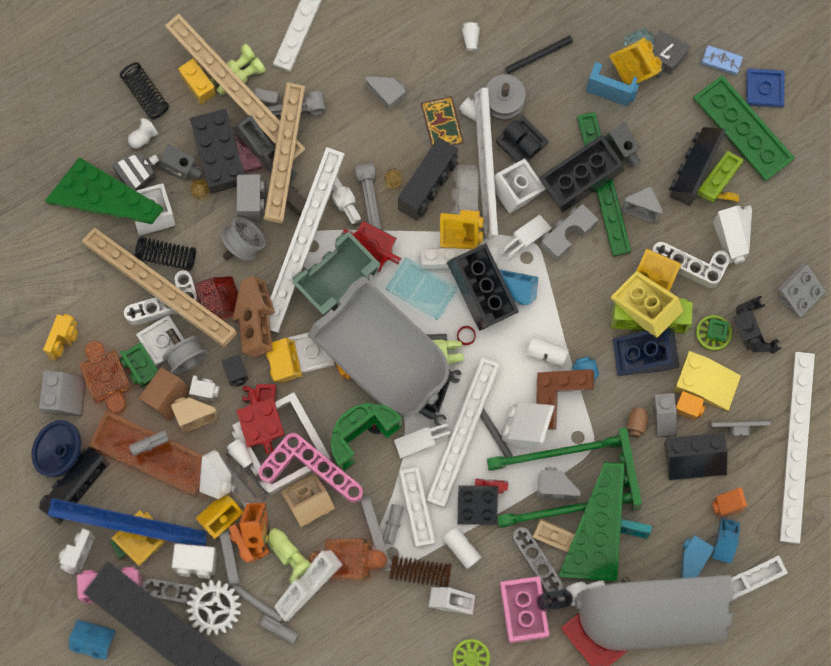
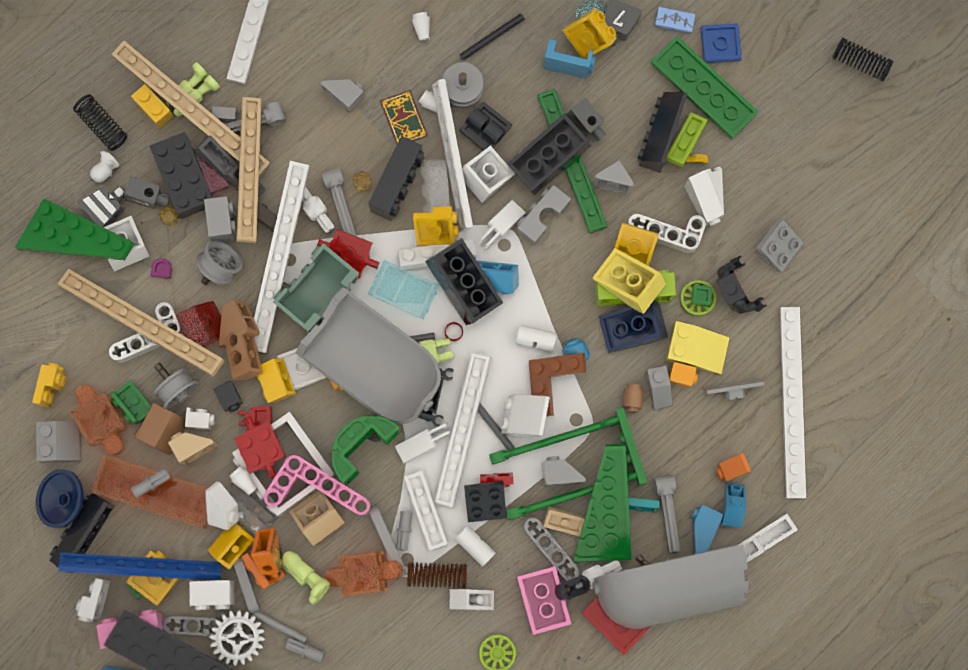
camera: 10 degrees left, 5 degrees up
(139, 253) = (169, 283): black piece -> none
(156, 340) = (145, 375): white tile -> none
(185, 237) = (161, 269): none -> magenta tile
(304, 588) = (330, 599): white slope -> none
(659, 514) = (665, 487): none -> light grey axle
(696, 456) = (695, 425): black slope -> none

